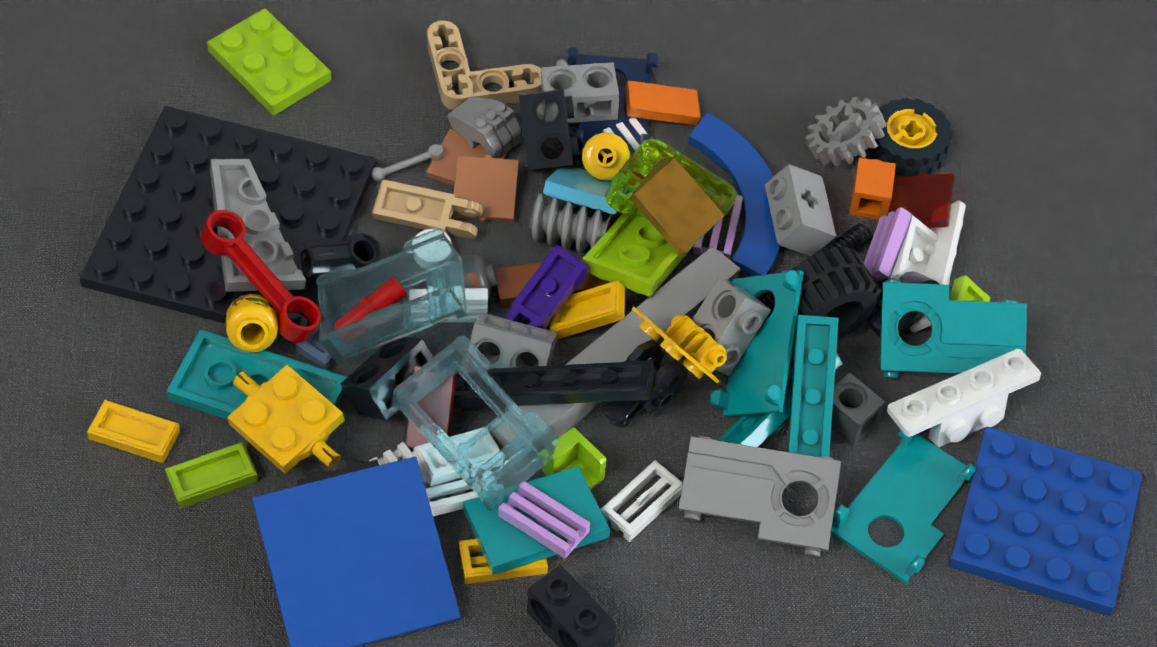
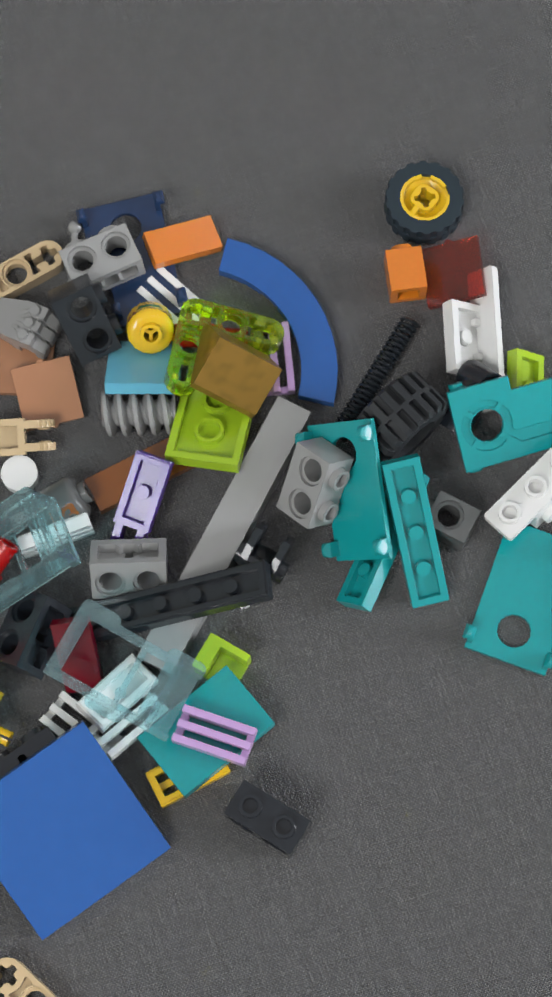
camera: 10 degrees left, 20 degrees up
(590, 309) = (187, 499): yellow tile -> none
(620, 522) = (278, 703): white tile -> none
(687, 339) = (284, 520): yellow hinge -> none
(749, 487) = (383, 634): light grey piece -> none
(800, 210) = (346, 324): light grey brick -> none
(846, 131) = (364, 221): light grey gear -> none
(887, 243) = (434, 337): lavender tile -> none

